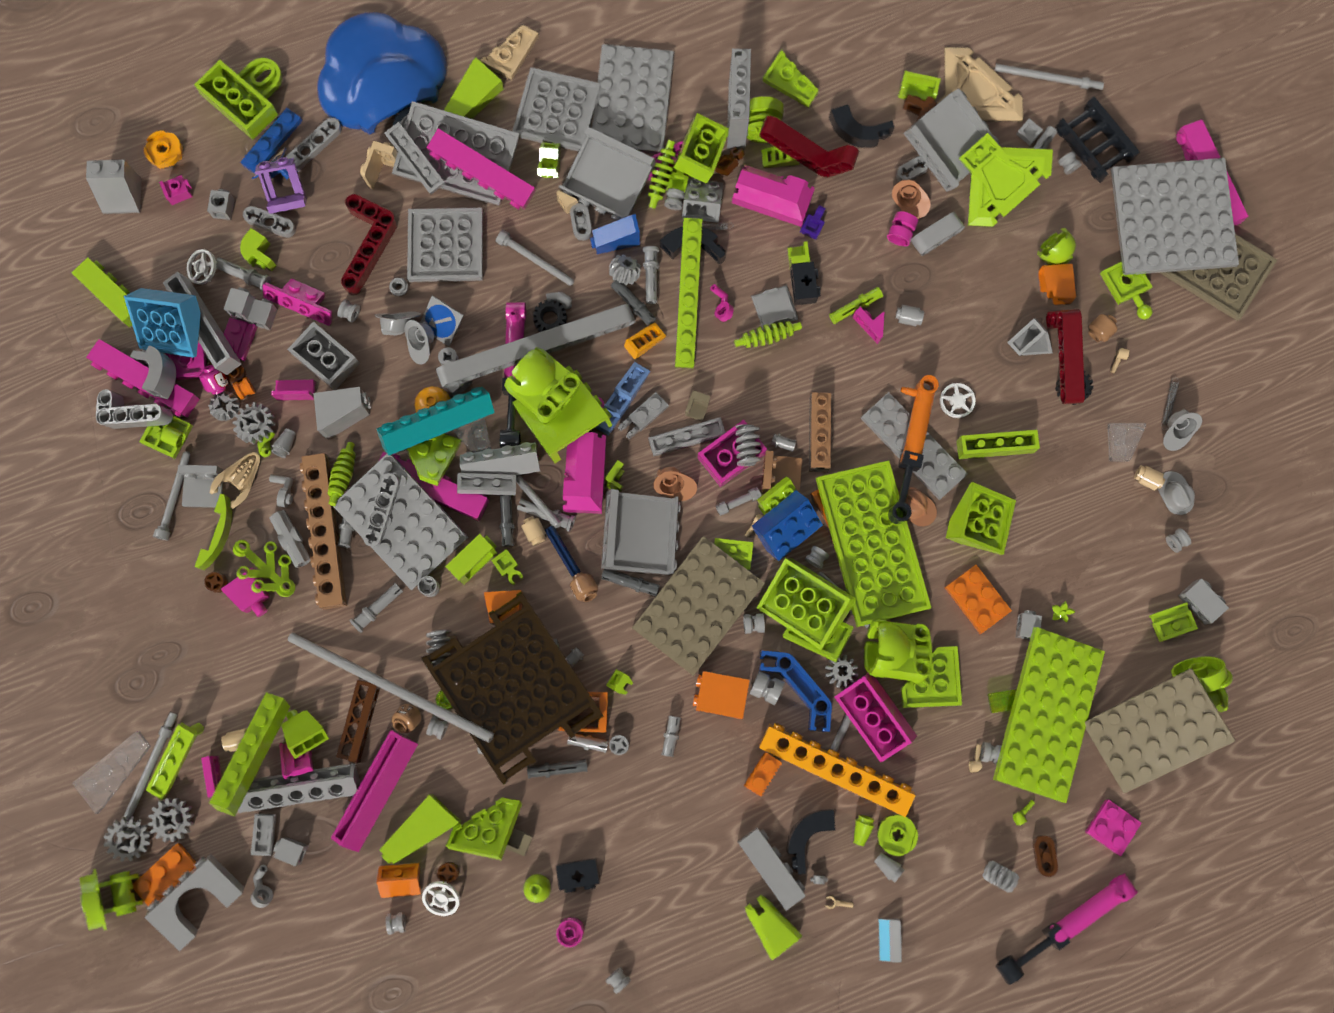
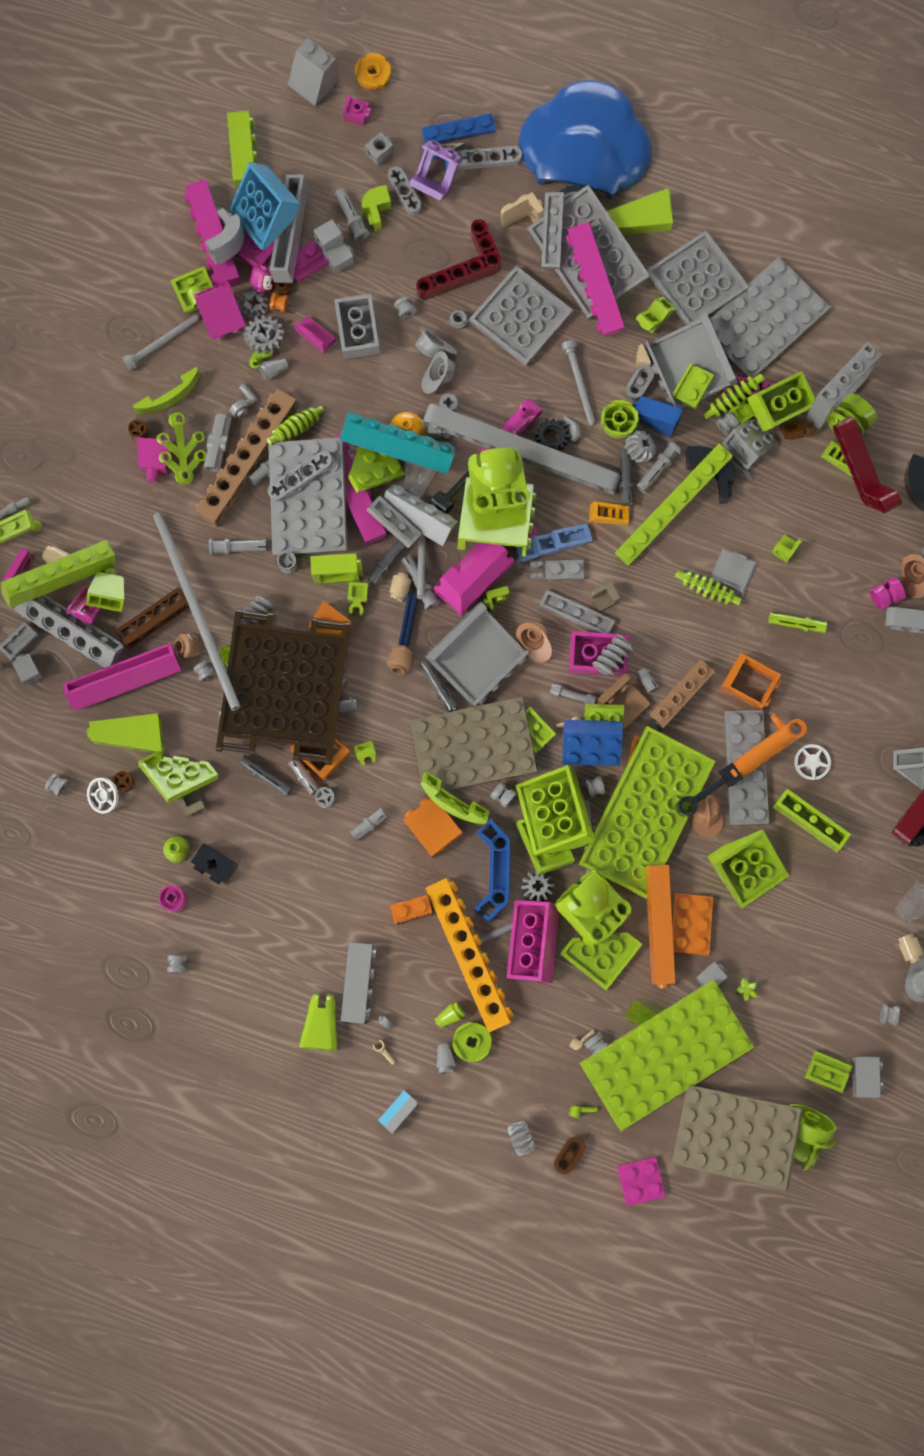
camera: 45 degrees right, 0 degrees up
(113, 413) = (168, 244): light grey beam -> none
(198, 484) = (188, 349): light grey bracket -> none
(200, 433) = (219, 310): none -> dark pink brick
(201, 267) = (325, 185): white wheel -> none
(239, 475) = (221, 365): tan animal -> none
(240, 95) = (465, 77): lime brick -> none
(300, 299) = (376, 268): dark pink bracket -> none
(340, 409) = (334, 377): light grey slope -> none
(399, 880) = (84, 756): orange panel -> none
(442, 320) = (468, 372): piece -> none
(511, 54) = (701, 207): tan wing -> none
(591, 261) = (619, 419): none -> lime cylinder
(624, 191) = (693, 386): none -> lime plate
(724, 310) = (691, 541): dark pink plate -> none
(743, 657) = (474, 813): none -> lime slope
(767, 687) = (470, 850): light grey wheel -> none
(773, 195) = (806, 483): dark pink brick -> none
(788, 80) = (902, 404): lime wing -> none
(801, 293) = (777, 562): black brick -> none
(806, 827) = (405, 977): black arch -> none
(814, 224) = (820, 533): dark purple plate -> none
(842, 379) = (758, 667): none -> orange window
(873, 328) = (796, 650): dark pink slope -> none
(909, 315) = (832, 665): light grey brick -> none
(958, 620) = (660, 925): none -> orange brick
(1059, 934) = (544, 1221): dark pink piece -> none

